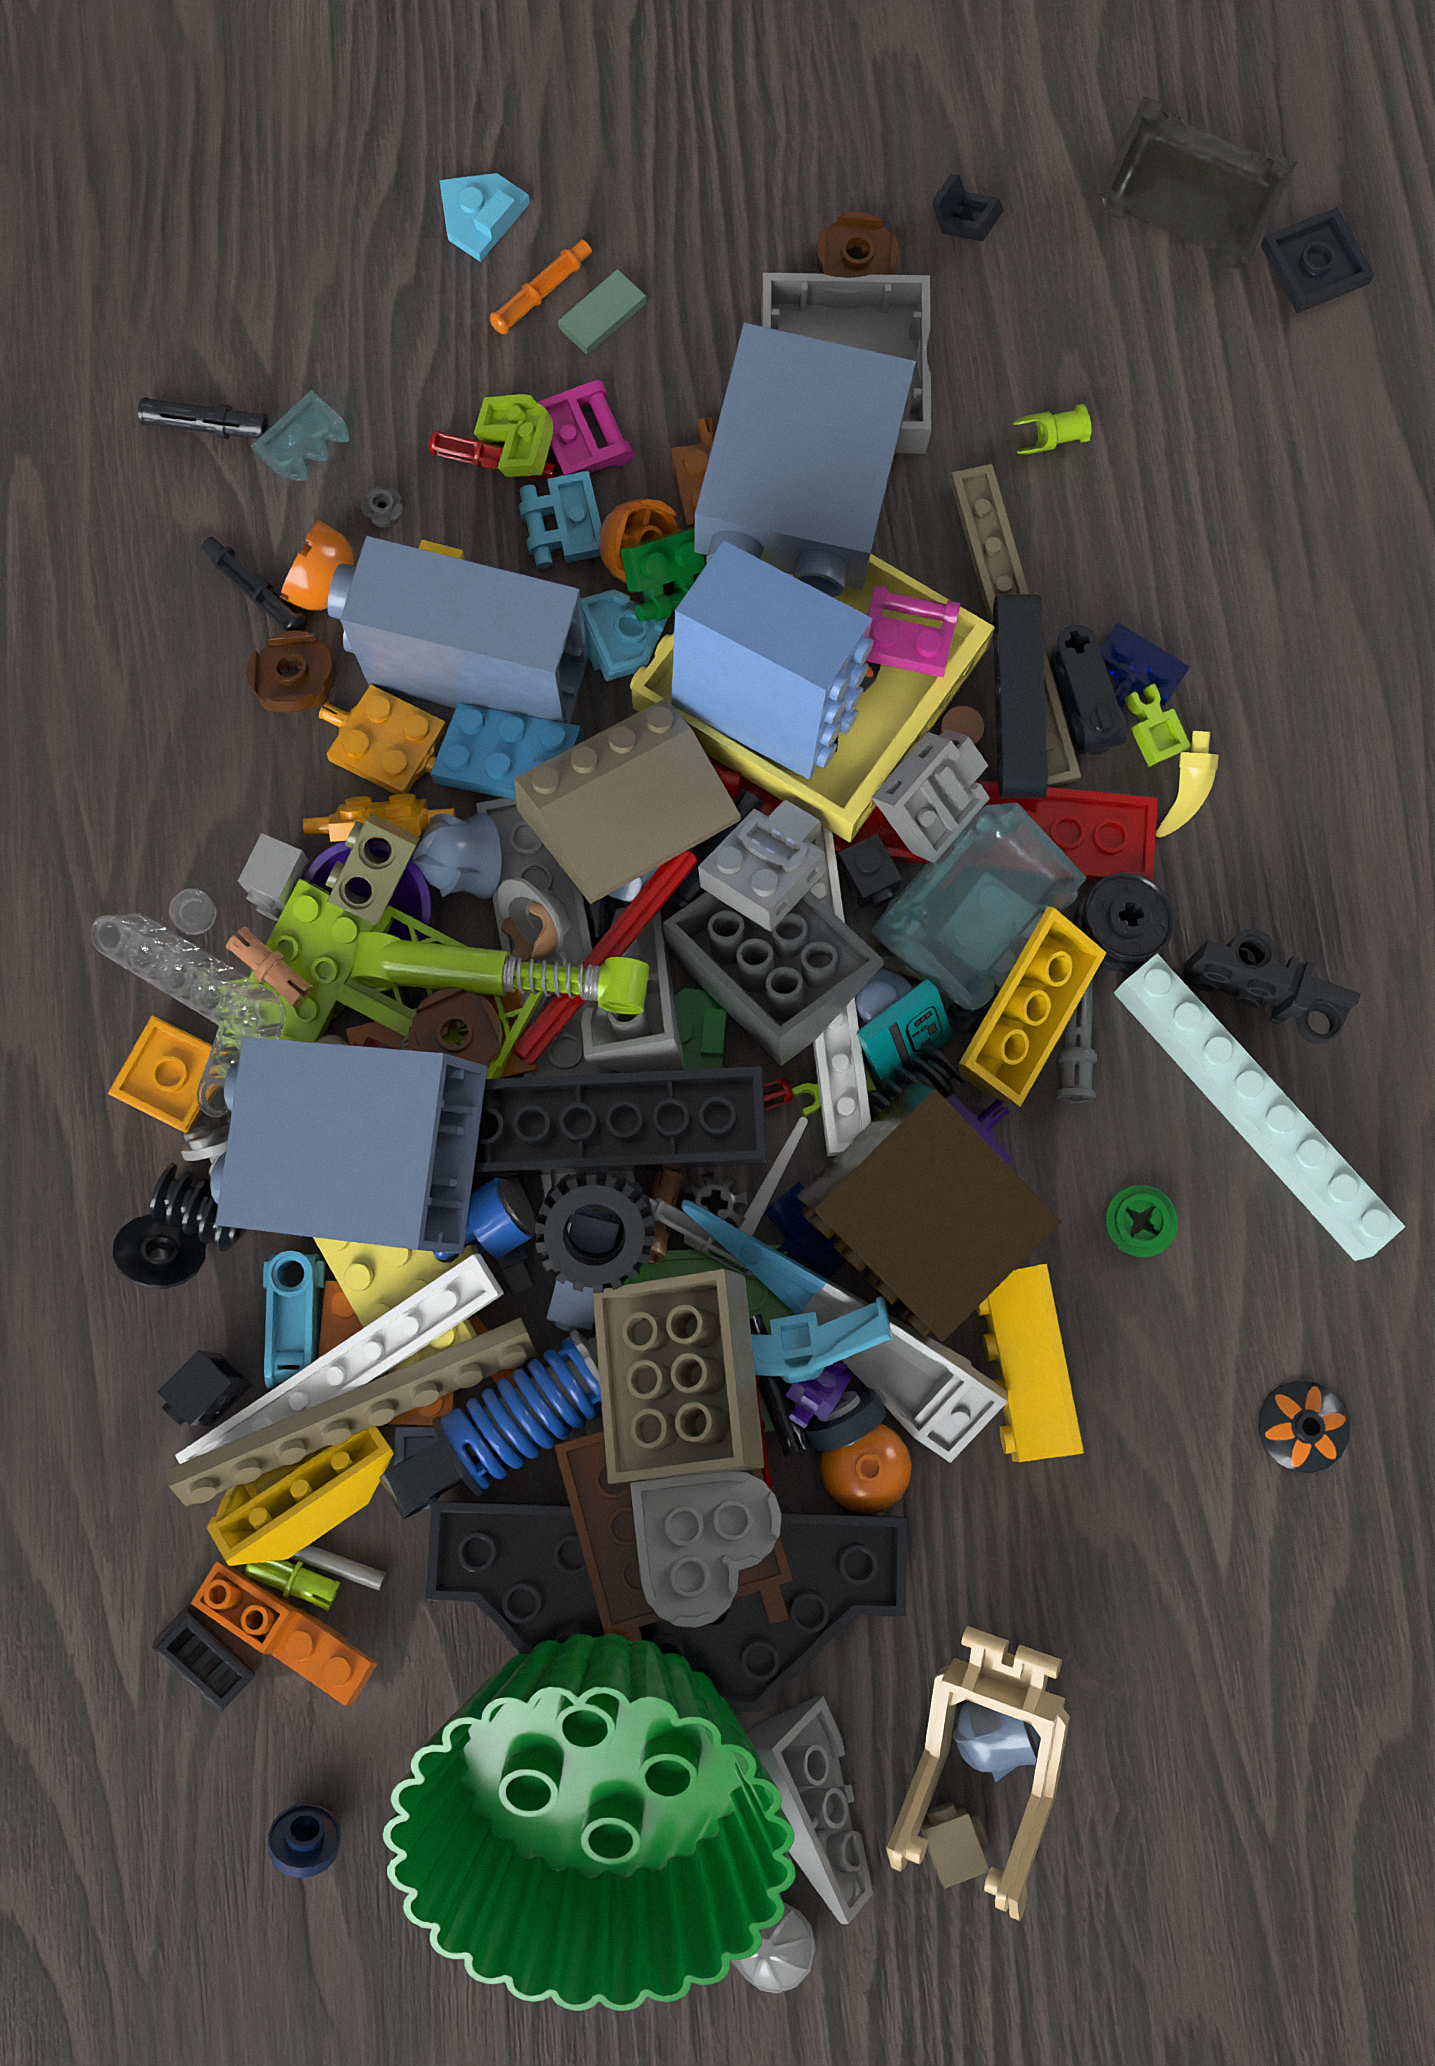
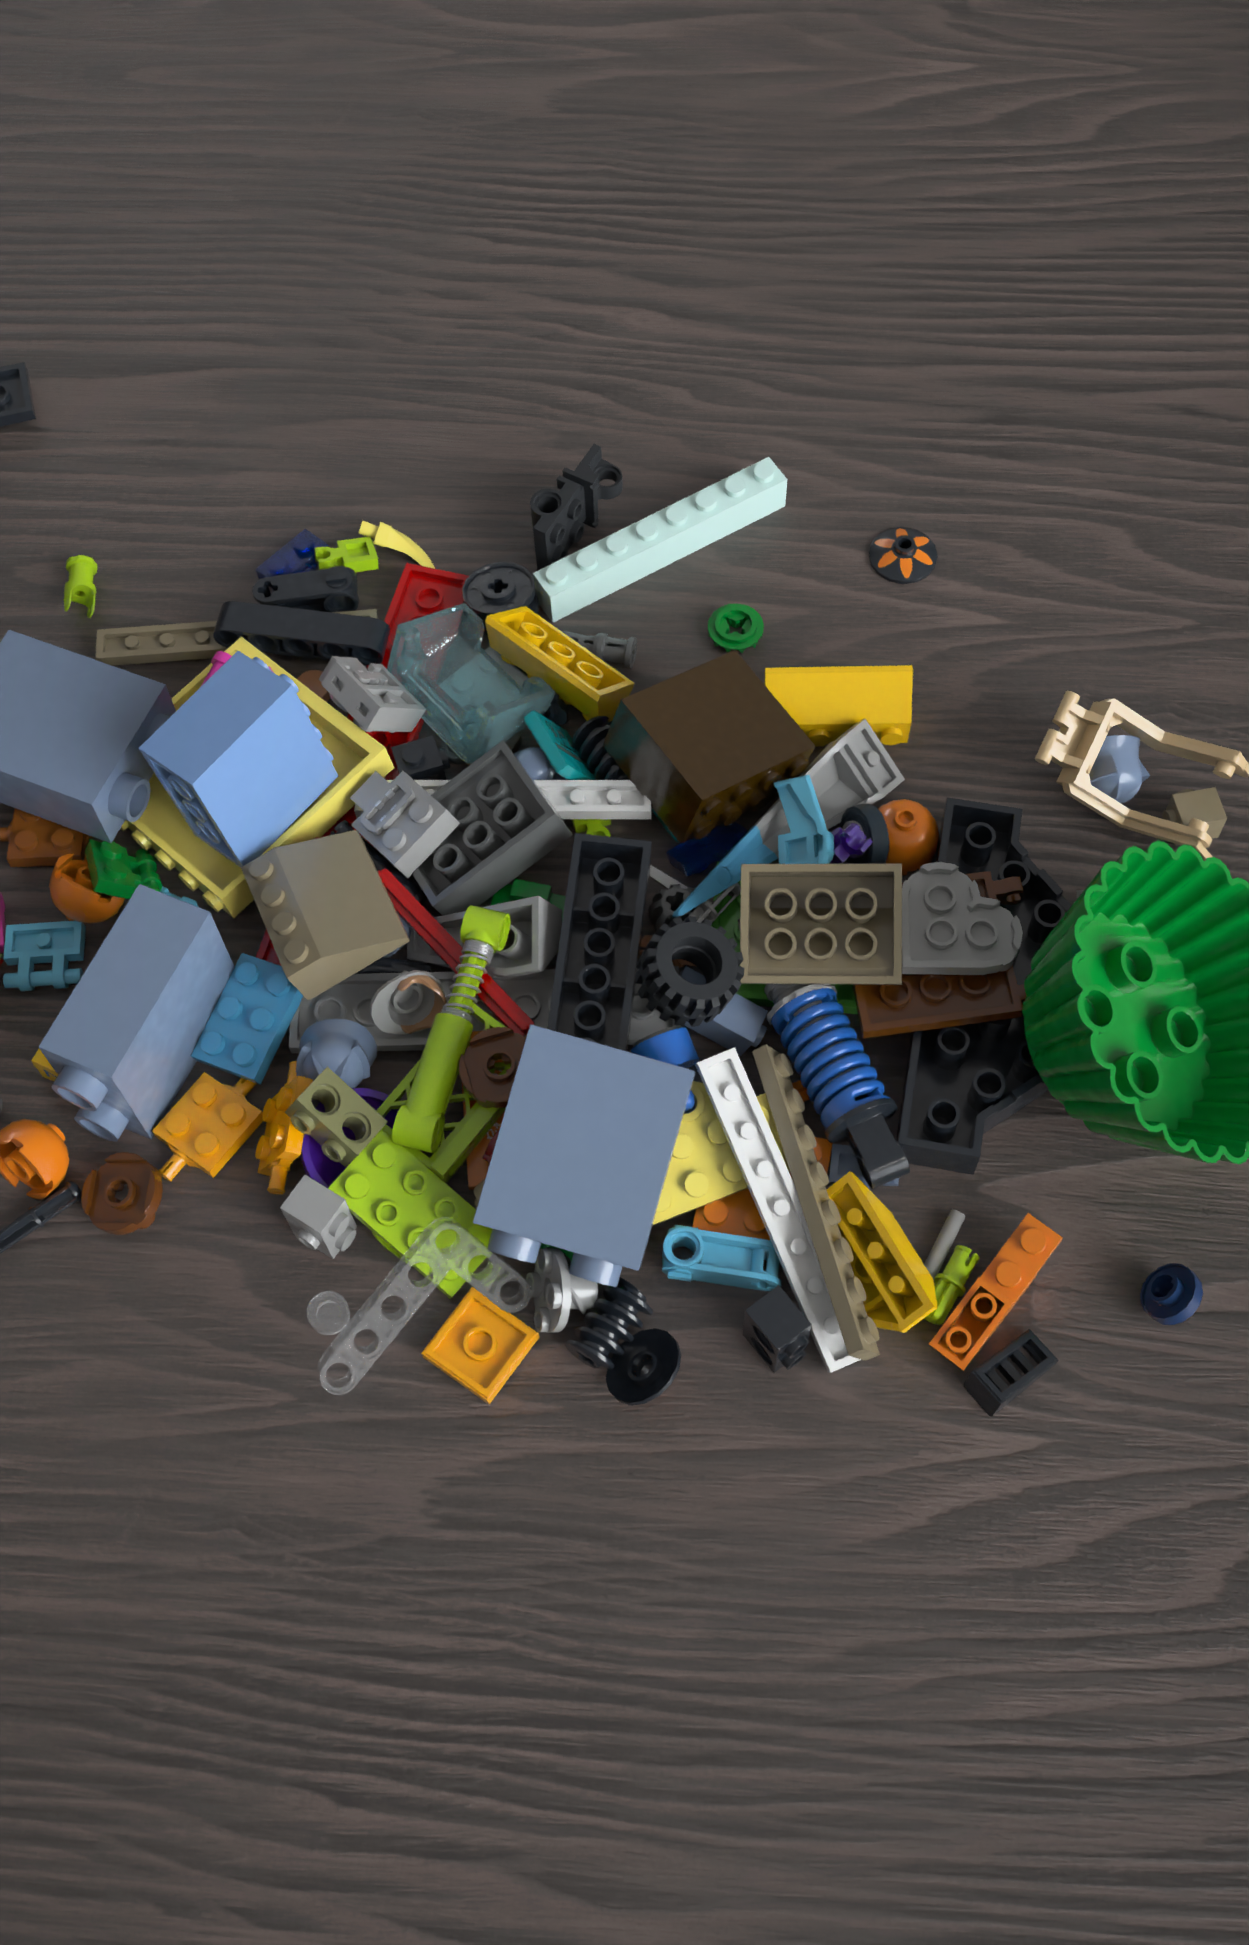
camera: 75 degrees left, 15 degrees down
(269, 967) = (403, 1224): nougat pin -> none

